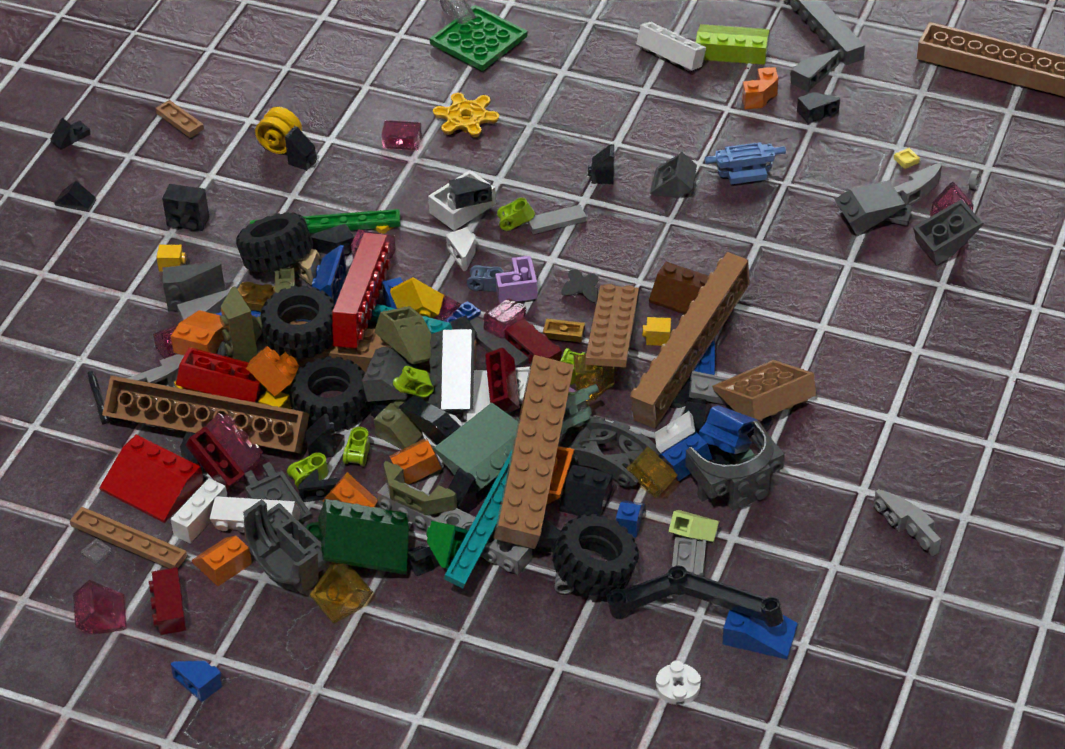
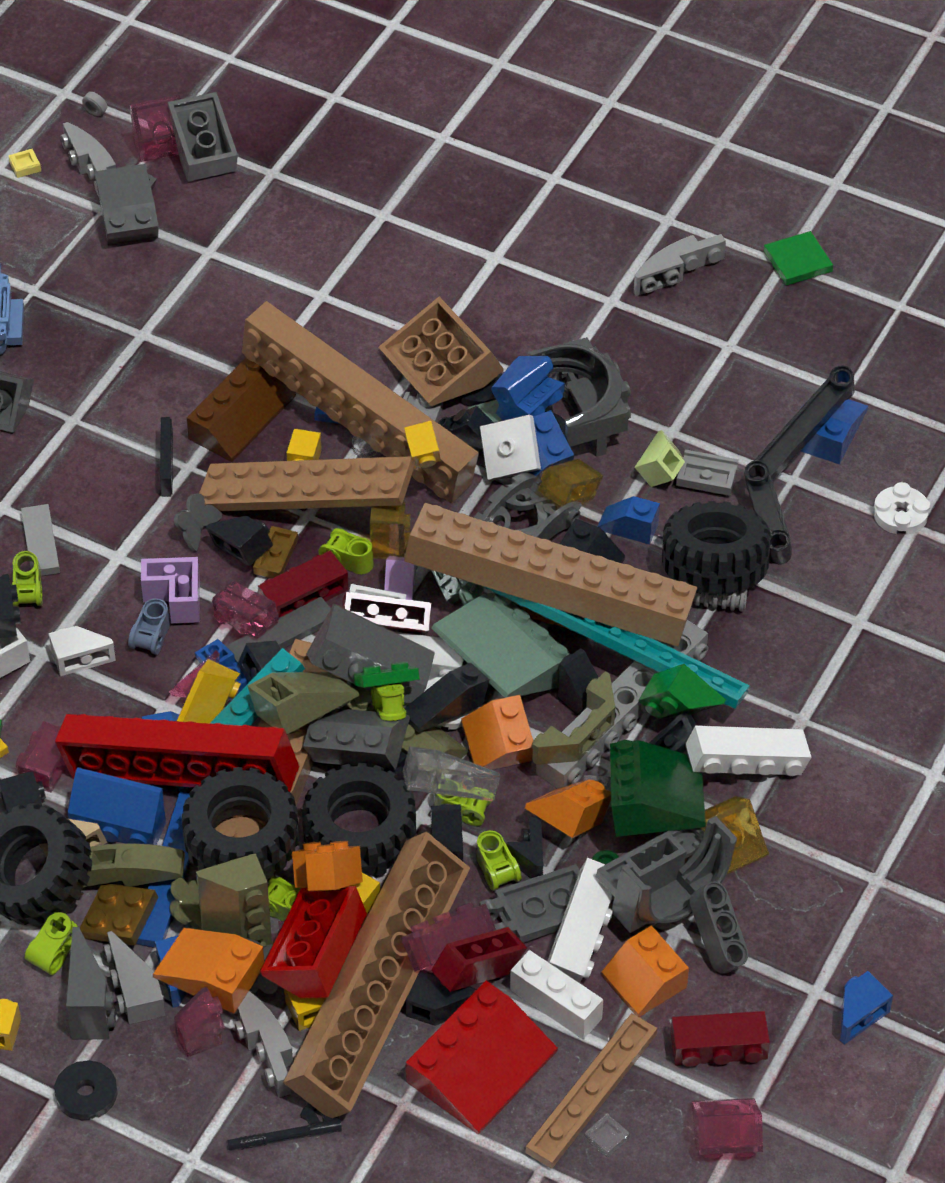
camera: 85 degrees left, 5 degrees up
(126, 296) = (85, 1074): none -> black tile
(233, 270) = (50, 944): none -> lime piece
(241, 586) = (723, 914): none -> dark grey beam
(359, 415) = (448, 775): none -> clear slope
(409, 592) = (748, 750): none -> white brick
(428, 374) = (375, 676): none -> green plate
(563, 306) = (241, 538): none -> black slope
(637, 263) = (166, 457): none -> black tile
(640, 366) = (422, 444): none -> yellow brick
(943, 601) = (798, 258): none -> green tile

